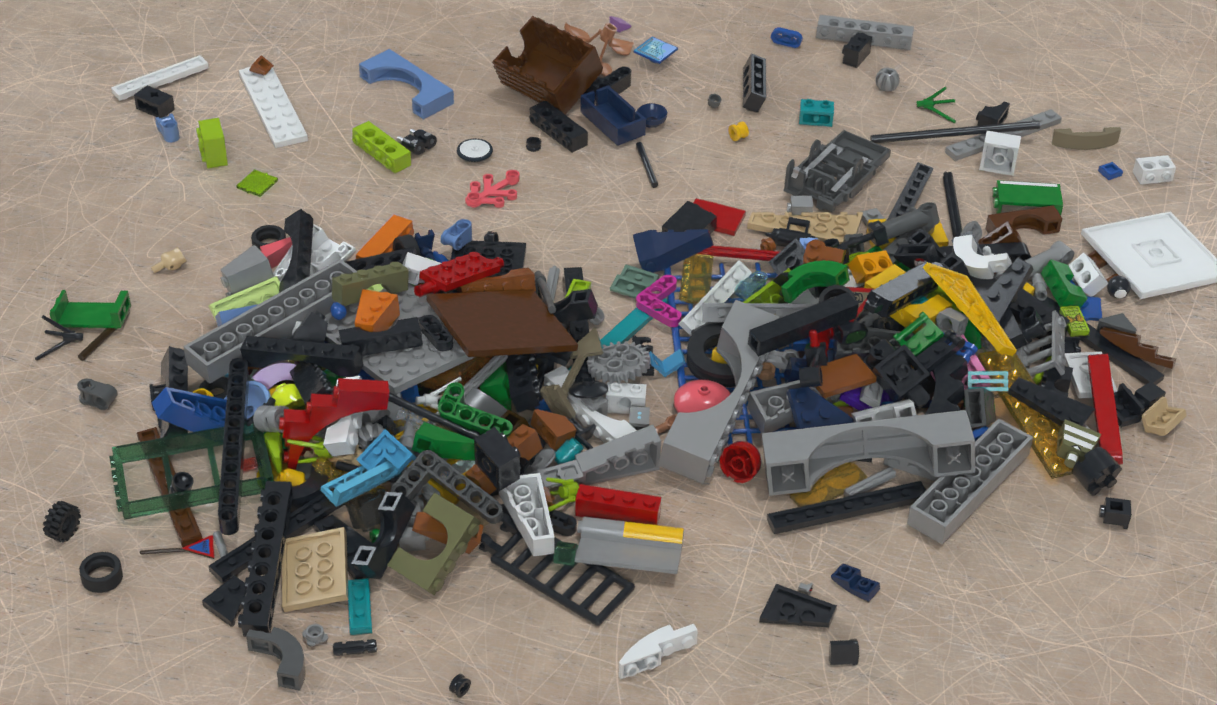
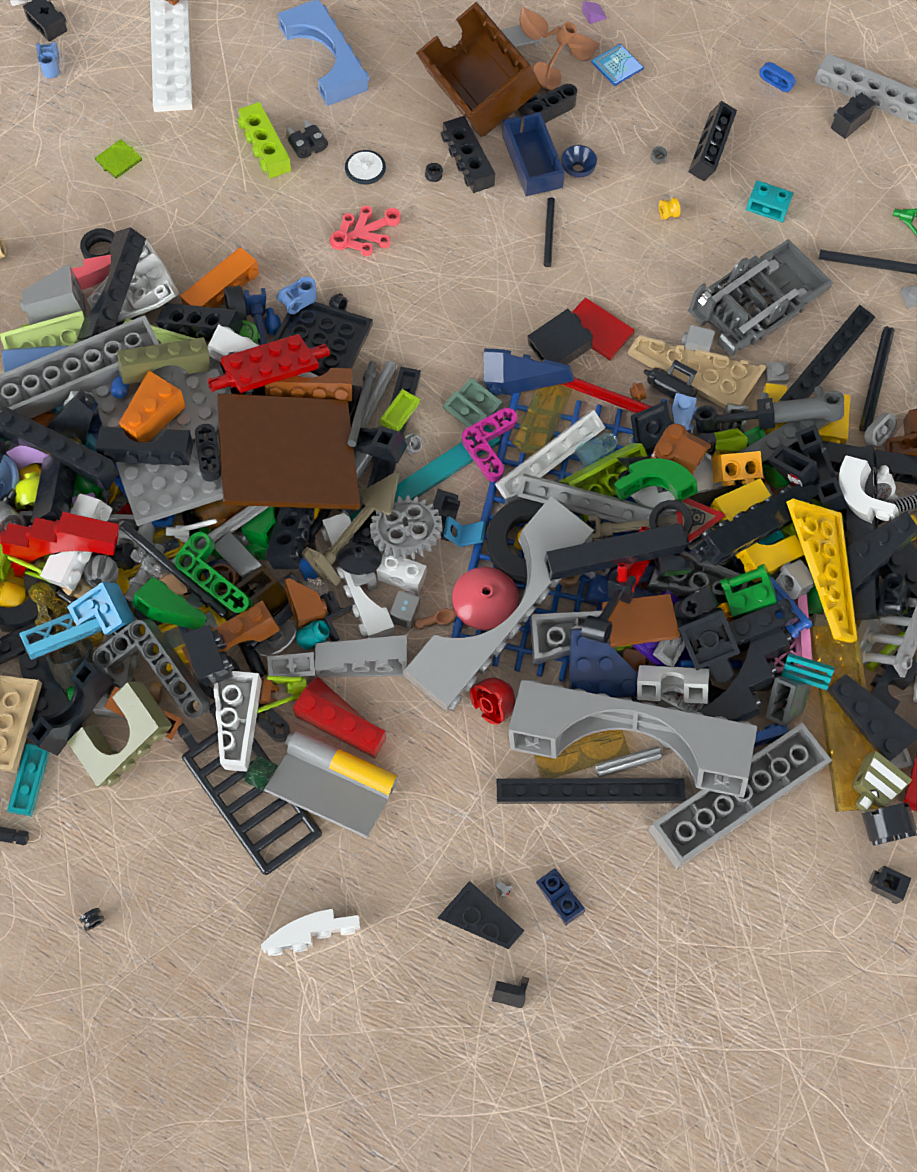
camera: 15 degrees right, 25 degrees up
(212, 143) = (82, 95): lime brick -> none
(887, 79) = (871, 169): light grey piece -> none

